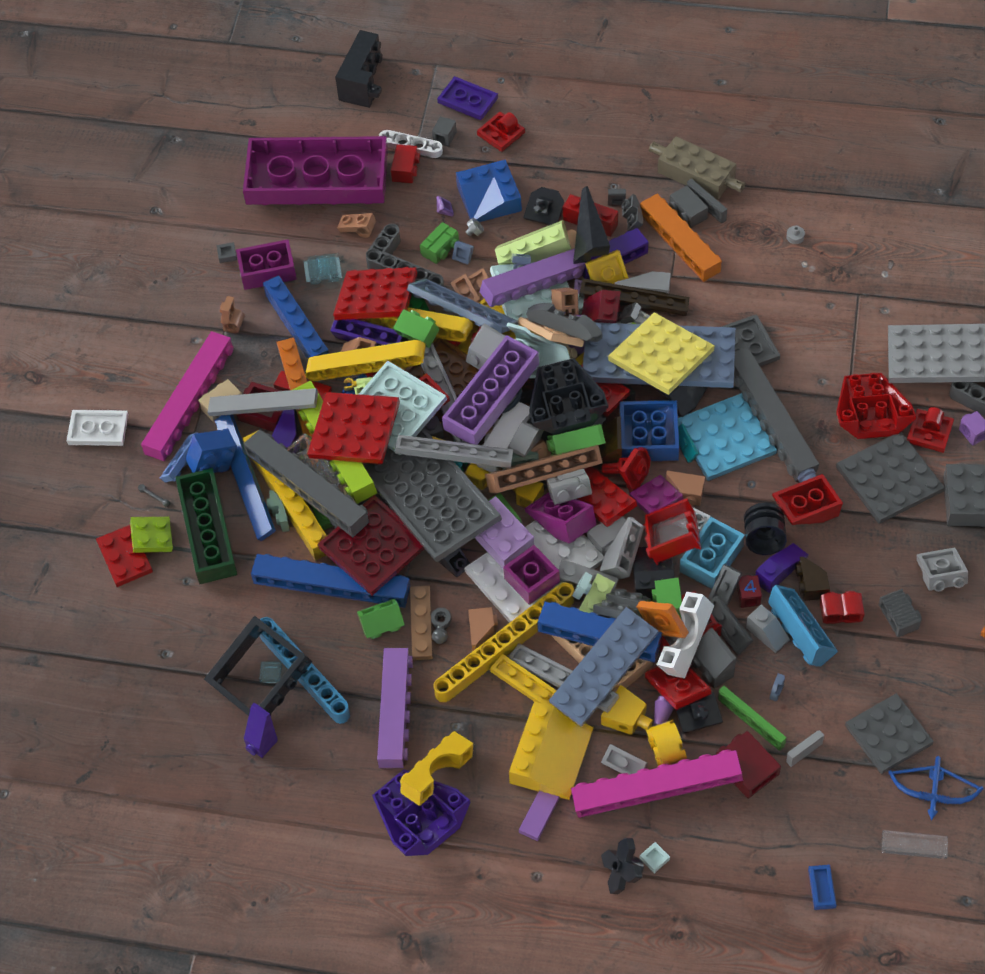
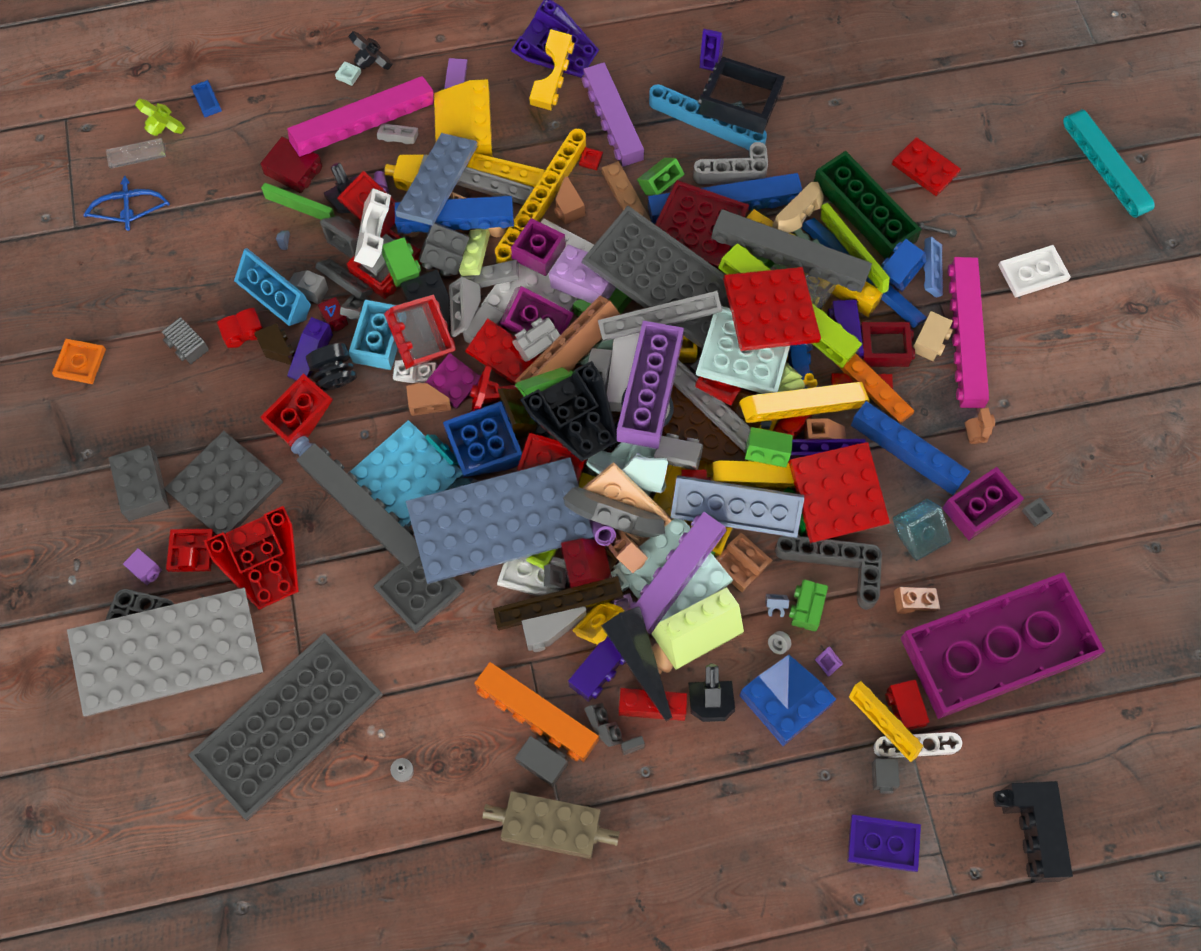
camera: 155 degrees right, 10 degrees up
(151, 534) = (912, 186): lime plate -> none
(243, 486) = (854, 246): none -> lime tile
(263, 402) = (882, 323): light grey tile -> none
(274, 531) = (803, 204): none -> tan brick
(331, 615) = (733, 169): none -> light grey beam
(428, 160) = (886, 721): none -> yellow plate
(435, 670) = (590, 158): none -> red tile
(440, 634) = (603, 188): dark grey plate -> none
(501, 130) = (817, 802): red plate -> none
(520, 259) = (699, 588): sand blue tile -> none
(583, 586) = (487, 253): light aqua plate -> none
(661, 353) = (494, 508): light yellow plate -> none
(663, 618) = (396, 226): orange plate -> none
(666, 743) = (364, 150): yellow brick -> none
(715, 208) = (522, 777): dark grey tile -> none
(805, 748) = (244, 193): light grey tile -> none
(877, 285) = (285, 726): none -> dark grey plate
(879, 863) = (158, 118): none -> lime plant
(889, 733) = (174, 234): dark grey plate -> none
(943, 569) = (150, 396): light grey plate -> none

